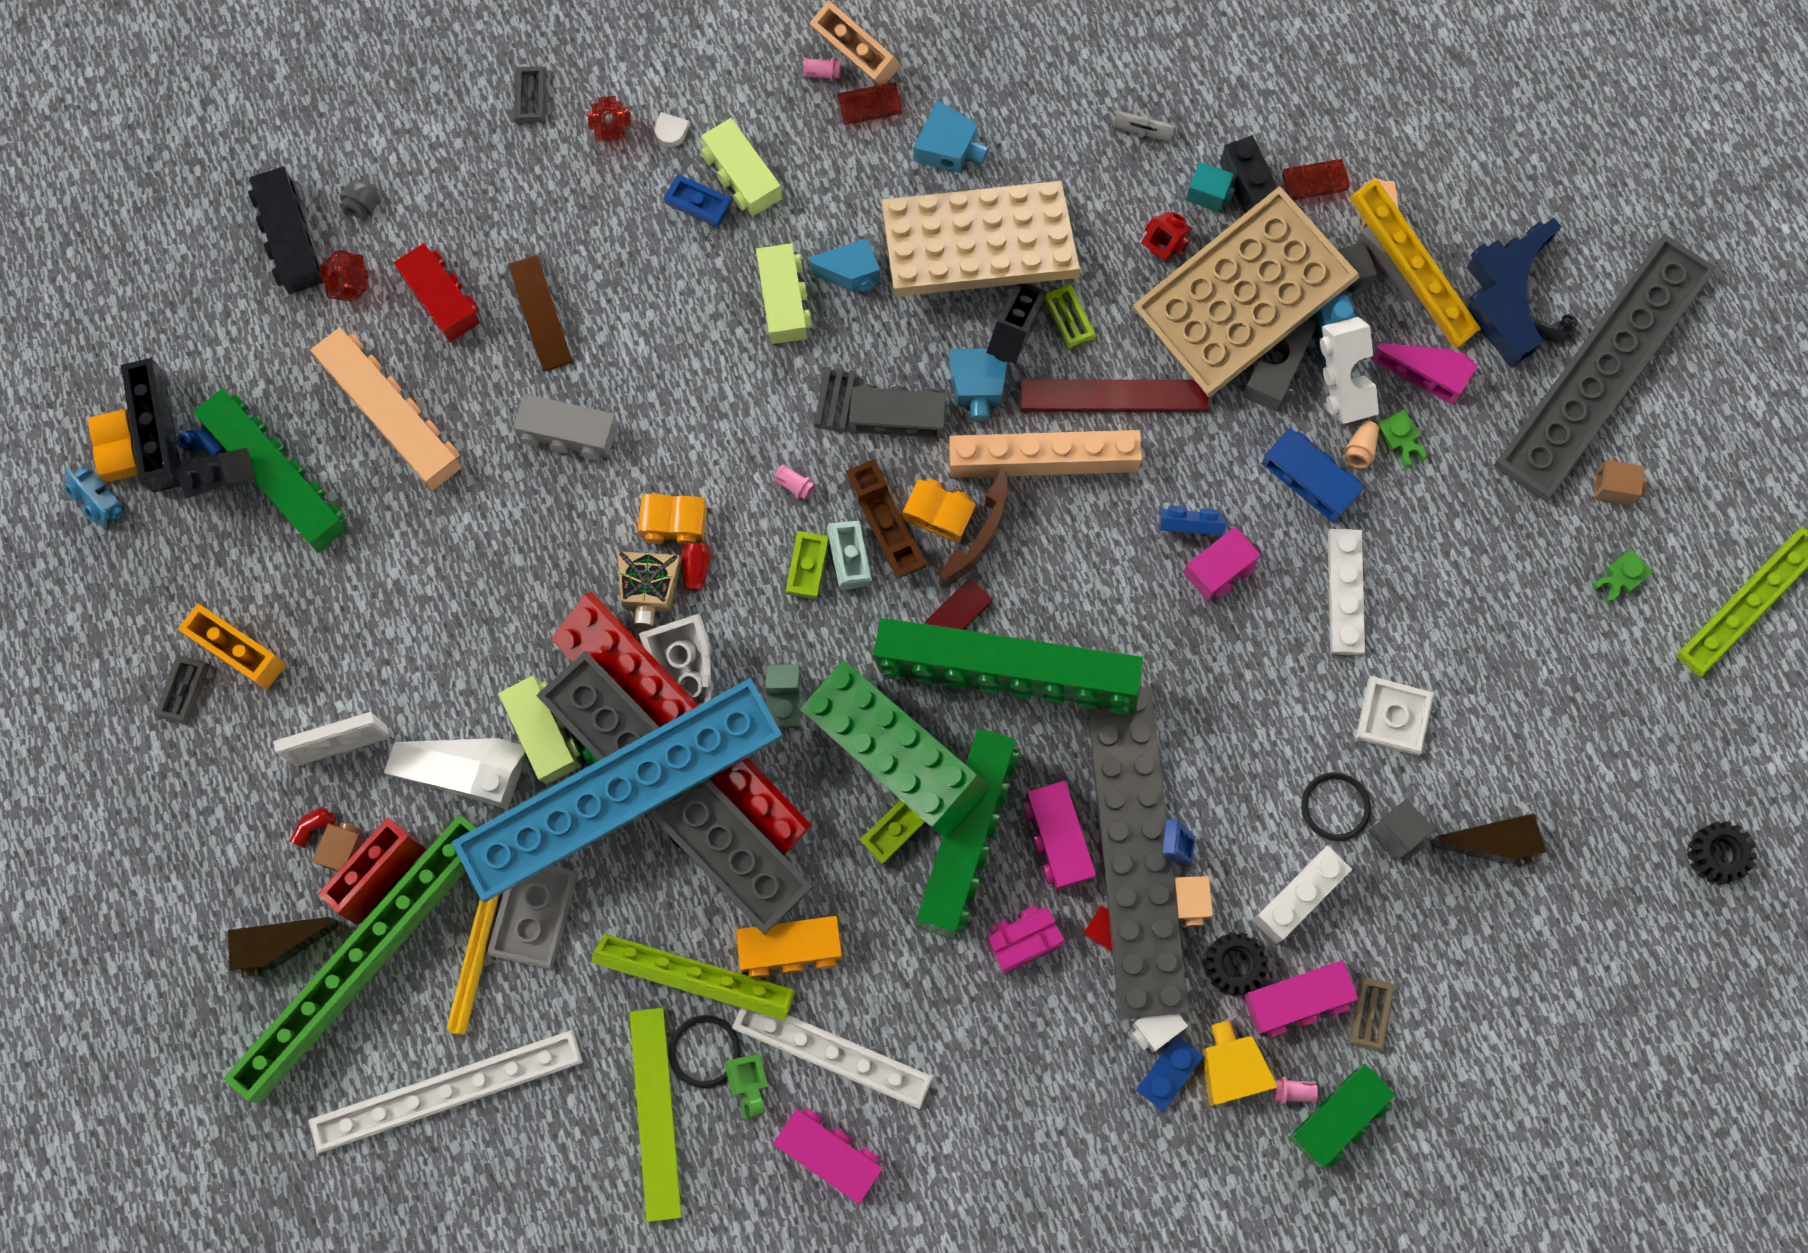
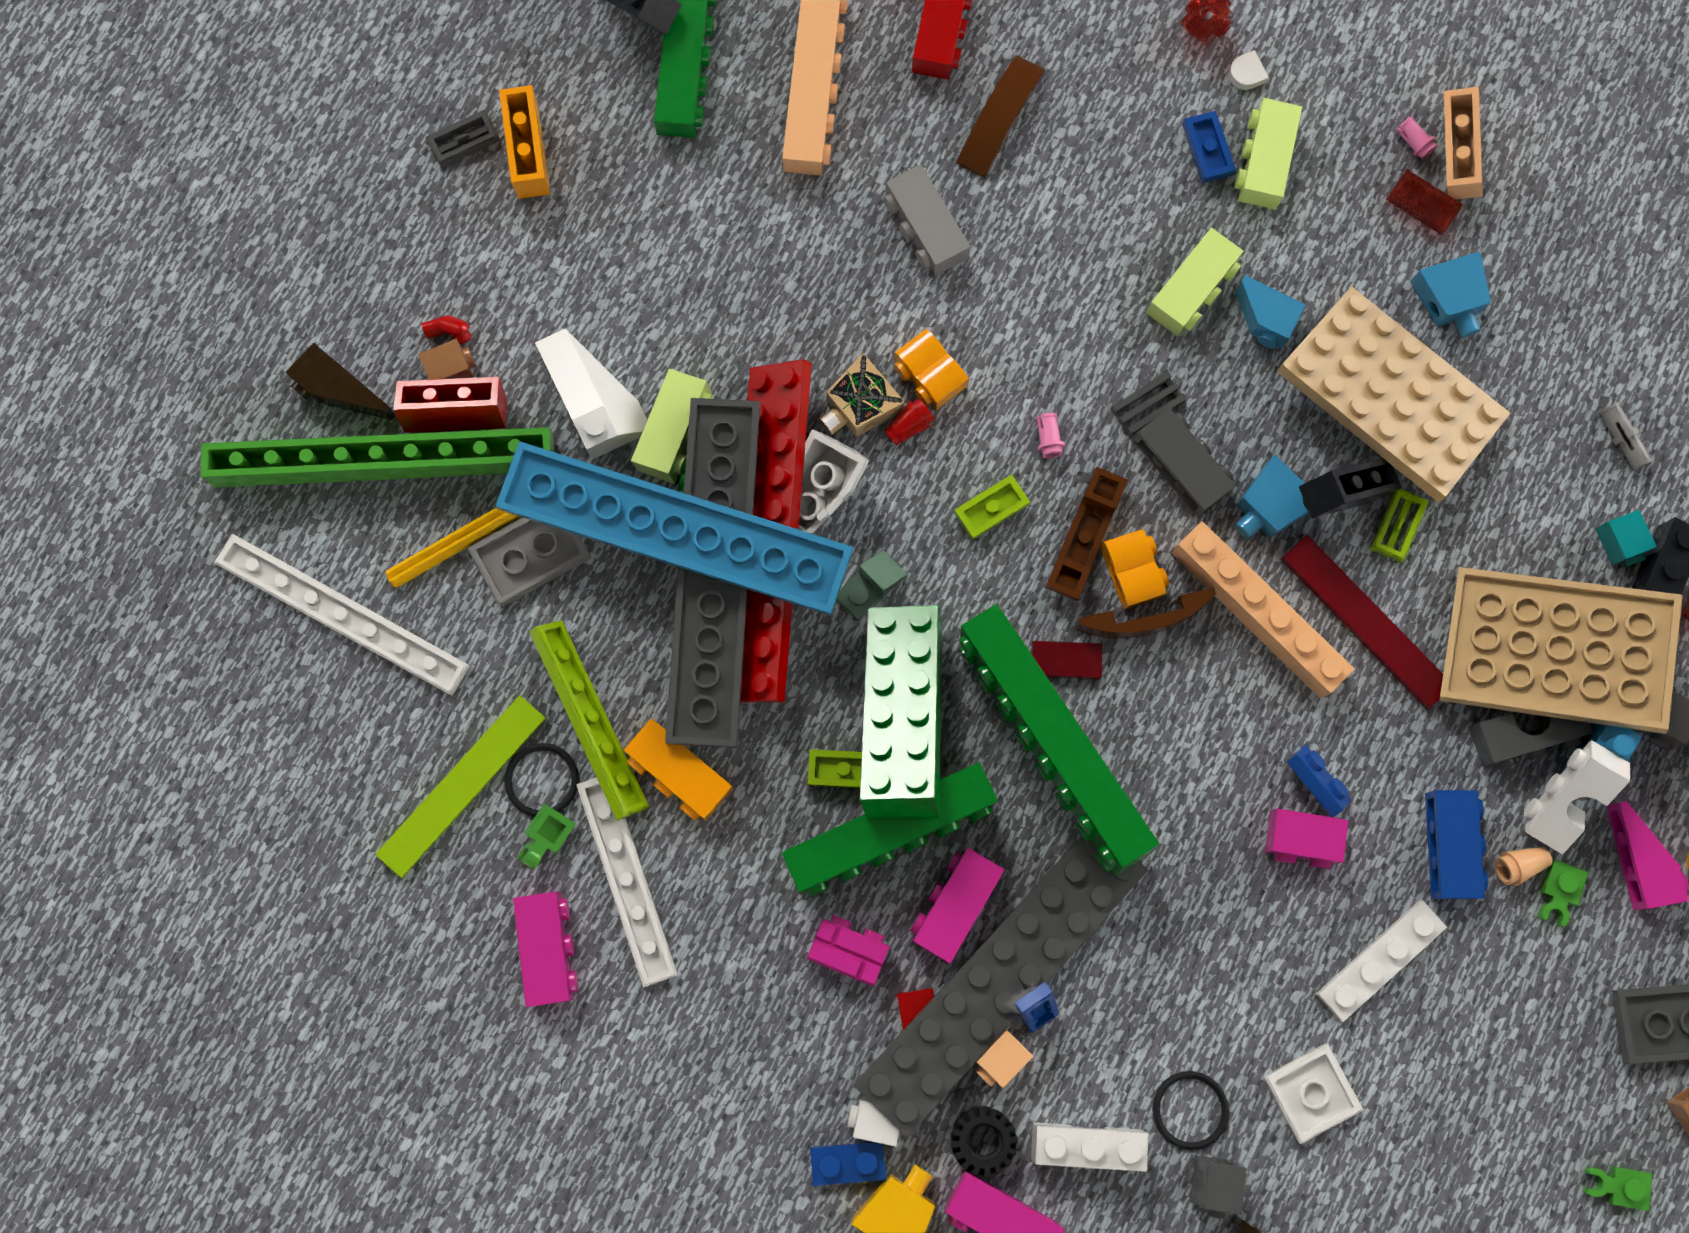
camera: 45 degrees right, 5 degrees up
(332, 739) = (521, 280): white tile -> none
(849, 554) = (1030, 531): light aqua brick -> none
(1167, 235) = (1547, 540): red brick -> none

